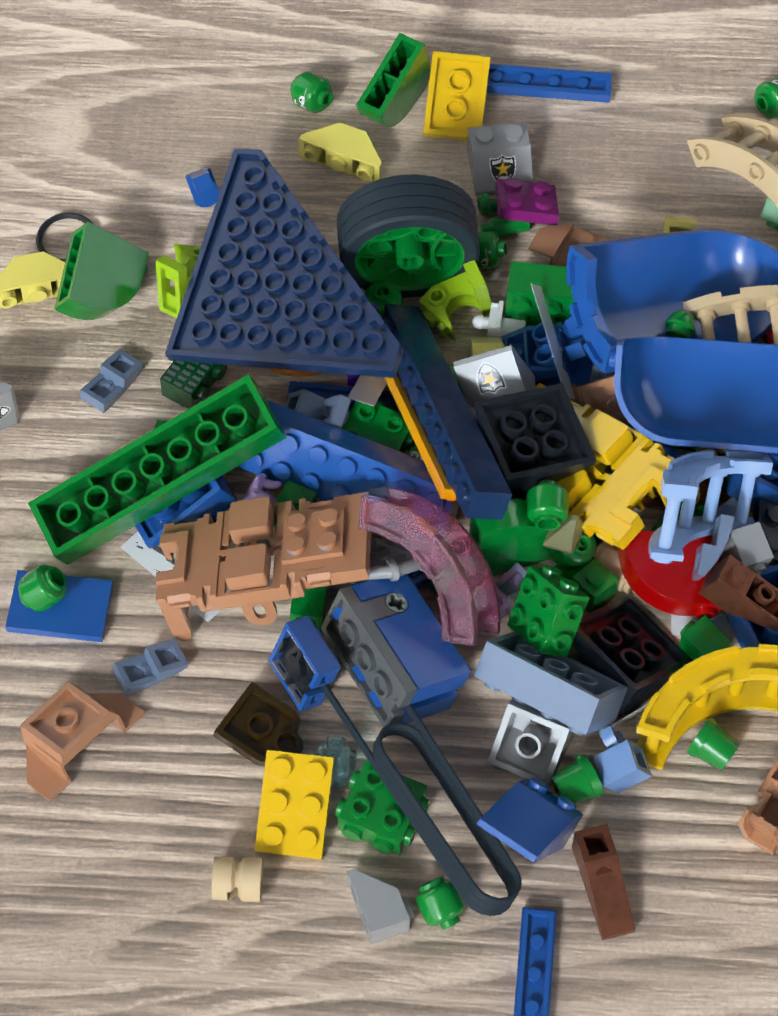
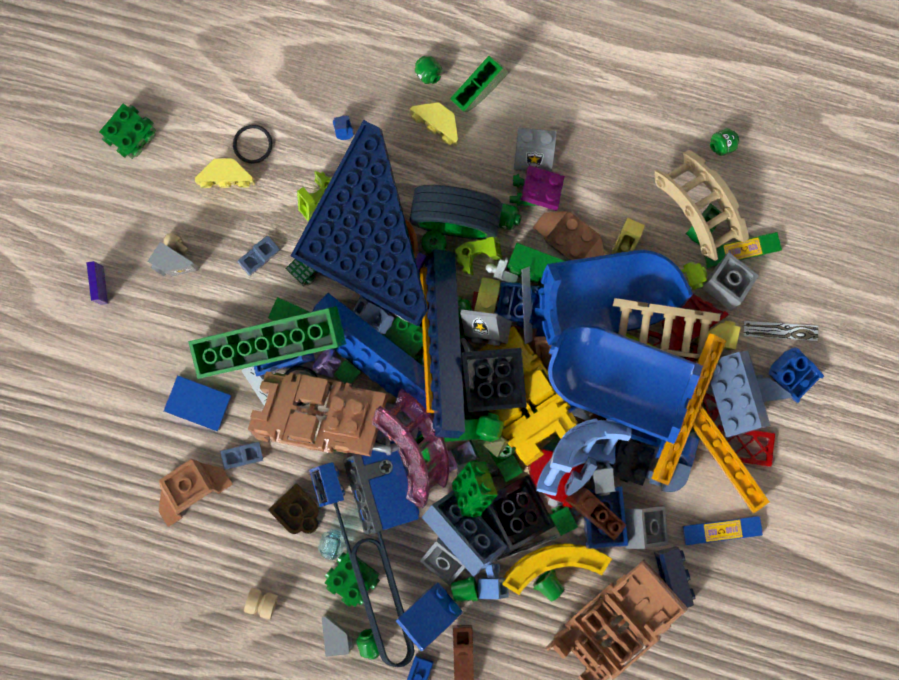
camera: 15 degrees right, 25 degrees up
(42, 588) = (186, 397): green head -> none
(99, 273) = (263, 185): green brick -> none
(294, 804) = (302, 567): yellow plate -> none
(455, 95) = (518, 97): yellow plate -> none
(549, 83) = (567, 91): blue plate -> none
(680, 324) = (608, 314): green plate -> none

